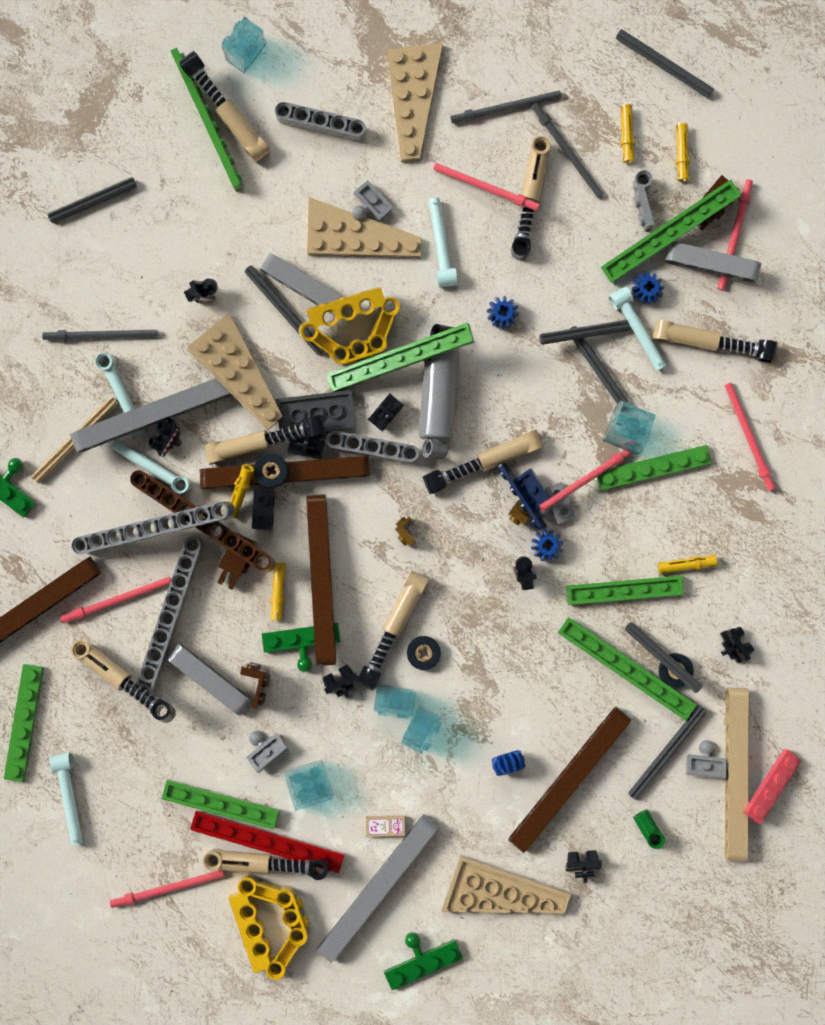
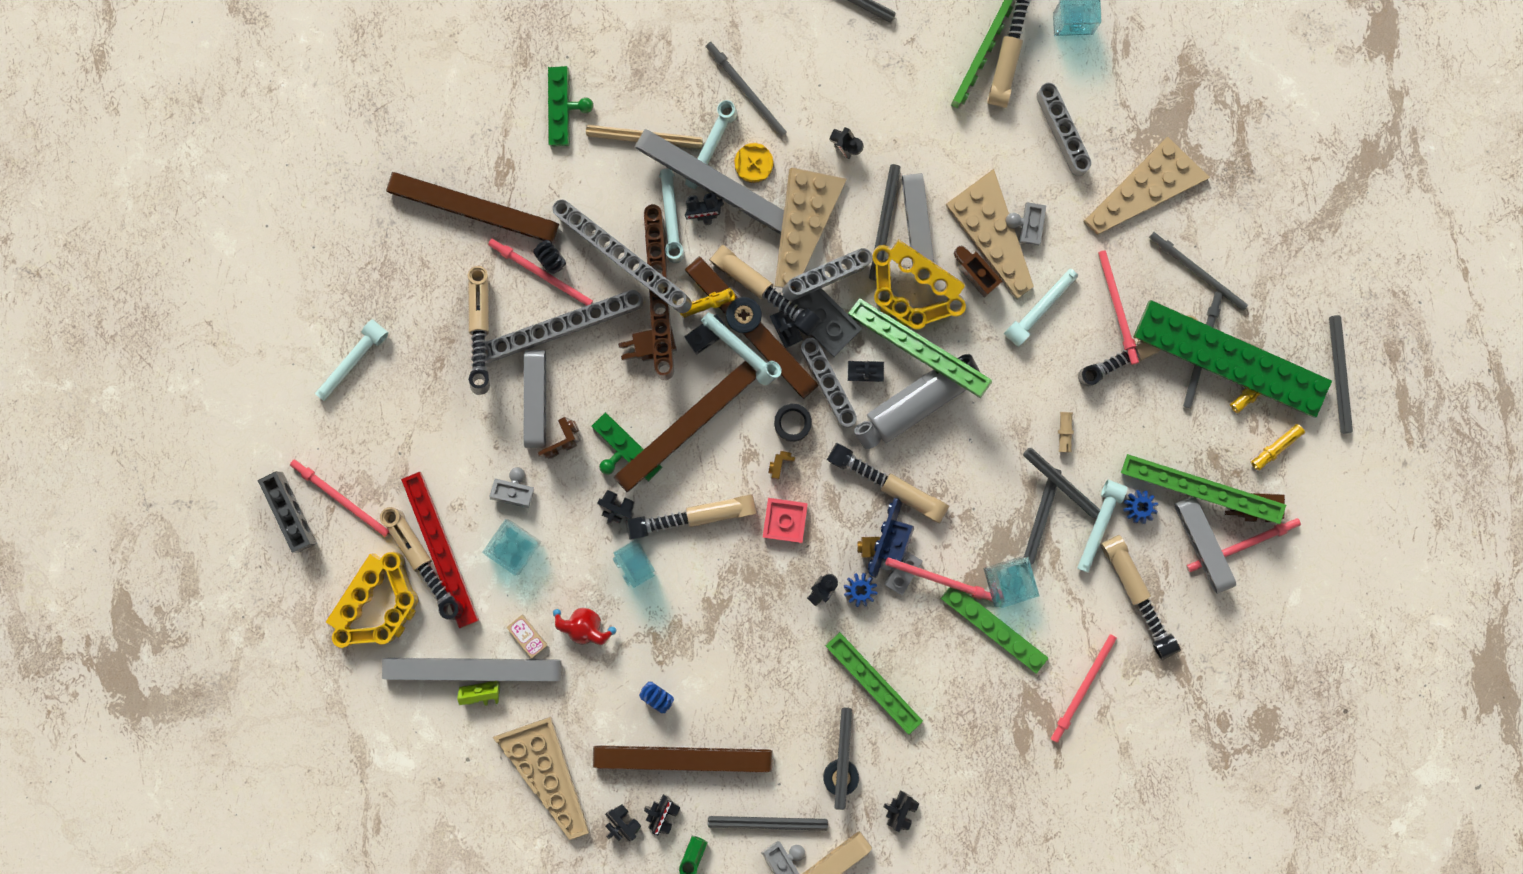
camera: 55 degrees right, 0 degrees up
(23, 723) = (383, 276): bright green plate -> none
(110, 583) = (549, 257): none -> black gear
(146, 937) = (287, 512): none -> dark grey brick
(161, 372) = (753, 162): none -> yellow tile
(220, 804) = (440, 487): bright green plate -> none
(278, 592) = (649, 398): yellow pin -> none
(290, 391) = (819, 278): none -> light grey beam
(327, 488) = (765, 372): none -> light aqua piece
(376, 269) = (977, 271): none -> reddish brown hinge
(381, 483) = (790, 437): none -> black tyre
(399, 896) = (479, 692): none -> lime plate
(411, 777) = (583, 627): none -> red piece
(421, 729) = (628, 603): clear light blue brick -> none
(422, 963) = (439, 754): green plate -> none
(432, 648) = (686, 565): black bush -> none
(450, 561) = (785, 520): none -> coral plate
(495, 309) = (1027, 410): blue gear -> none
(548, 299) = (1065, 432): none -> tan pin
(590, 133) = (1232, 358): none -> green plate
(597, 830) = (658, 813): none -> black hips
(626, 668) = (810, 735): bright green plate -> none
(641, 201) = (1209, 443): light grey plate -> none
(687, 564) = (943, 725): yellow pin -> none

